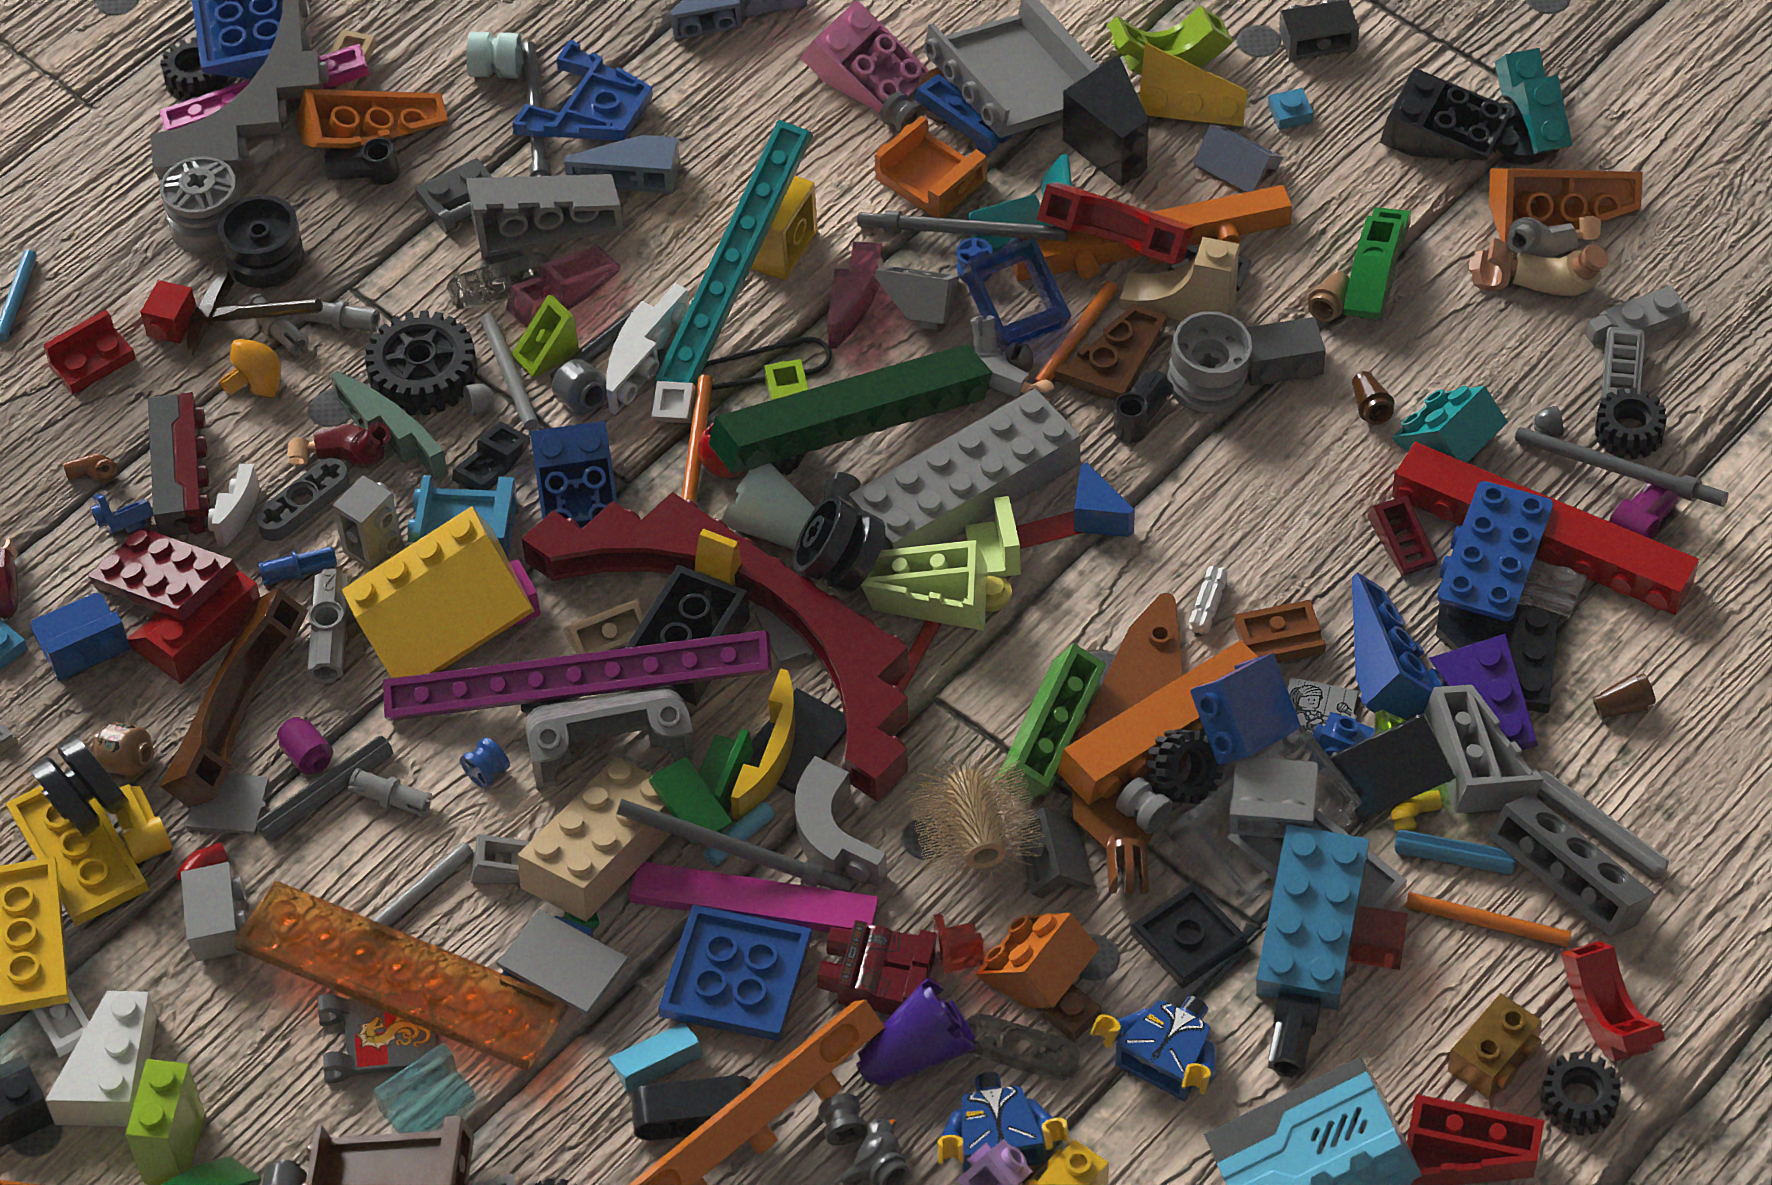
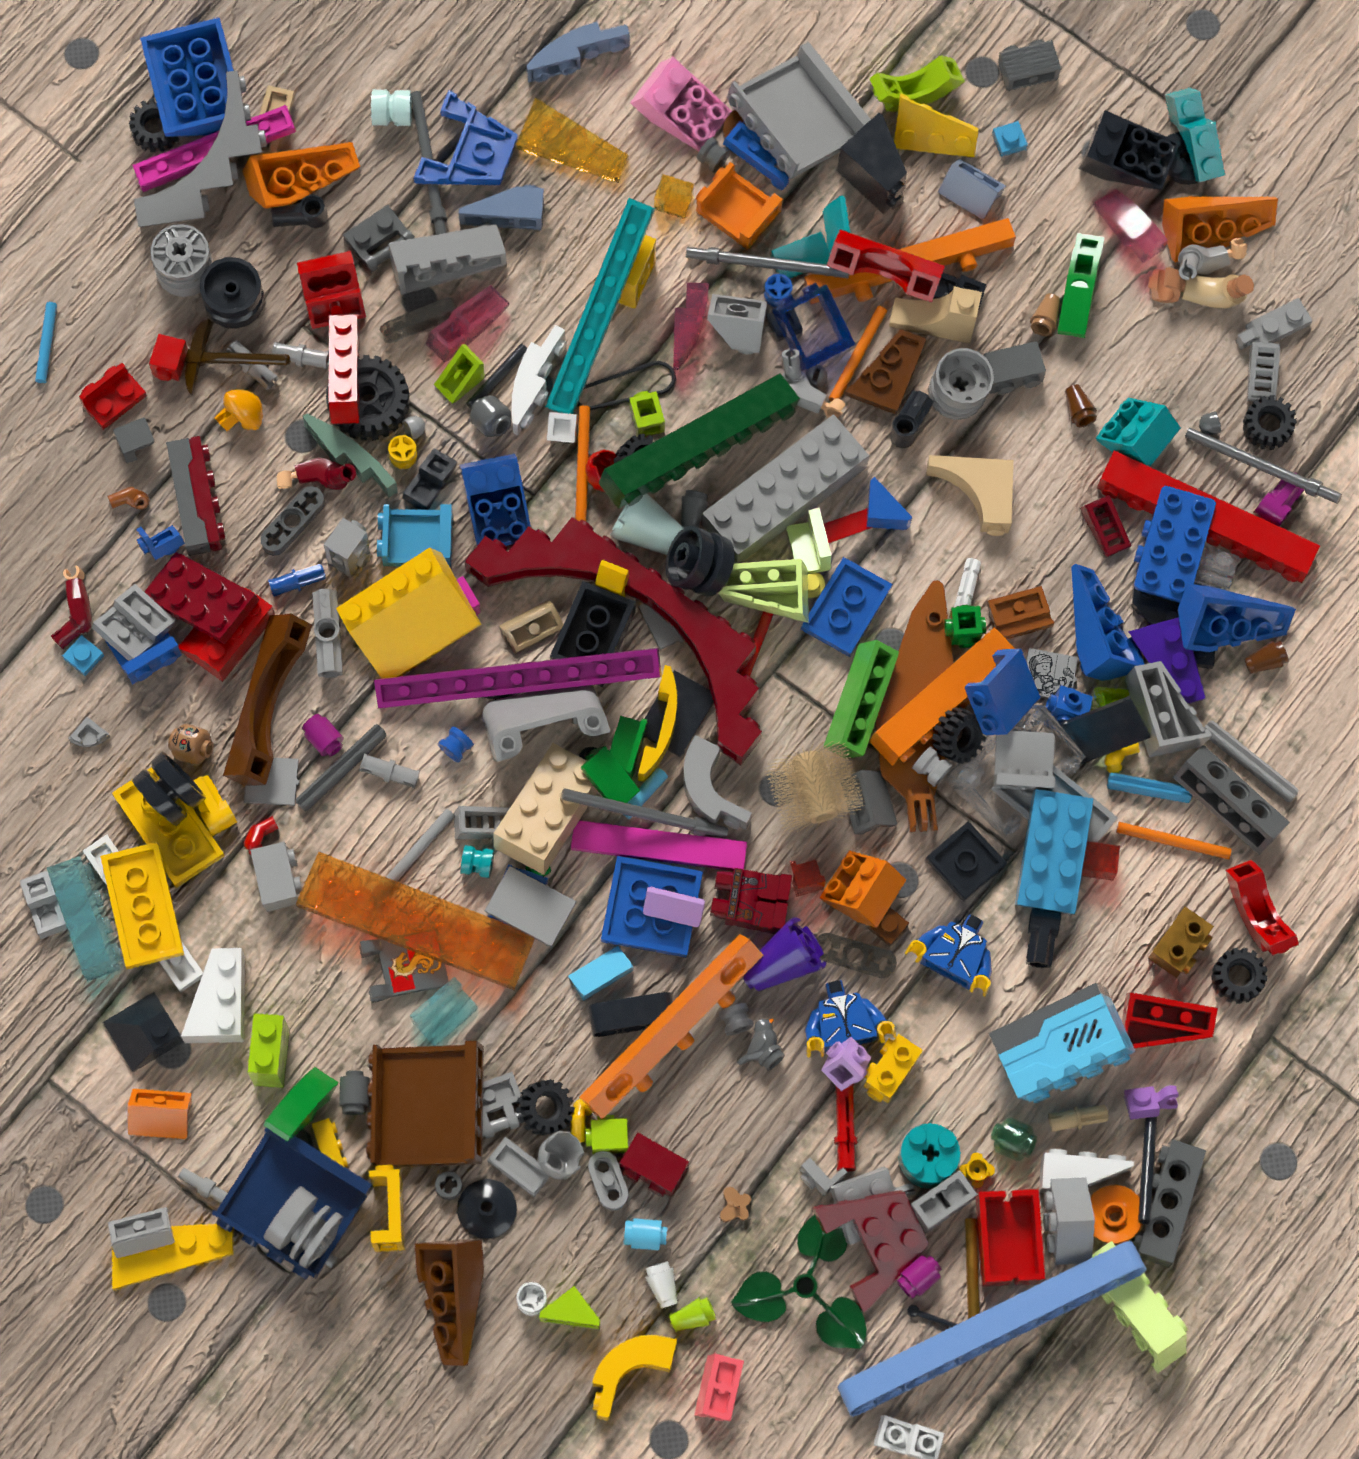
camera: 10 degrees left, 20 degrees up
(69, 600) = (133, 623): none -> light grey slope
(106, 393) = (133, 438): none -> dark grey panel
(234, 507) = (241, 535): white slope -> none
(387, 324) = (343, 369): none -> arch
(390, 244) = (330, 288): none -> red piece
(452, 417) = (401, 445): none -> yellow wheel
(496, 906) = (477, 861): none -> teal wheel
(509, 371) = (434, 400): light grey bar -> none
(715, 100) = (568, 143): none -> clear yellow wing
(764, 965) = (673, 907): none -> lavender slope
(846, 156) = (673, 196): none -> clear yellow panel
(969, 304) = (794, 322): none -> black tile
(1039, 618) = (846, 607): none -> blue plate
(1199, 637) = (967, 617): none -> green brick
(1234, 477) = (985, 483): none -> tan arch
(1448, 201) = (1131, 225): none -> clear pink slope
(1563, 641) = (1223, 618): none -> blue wedge

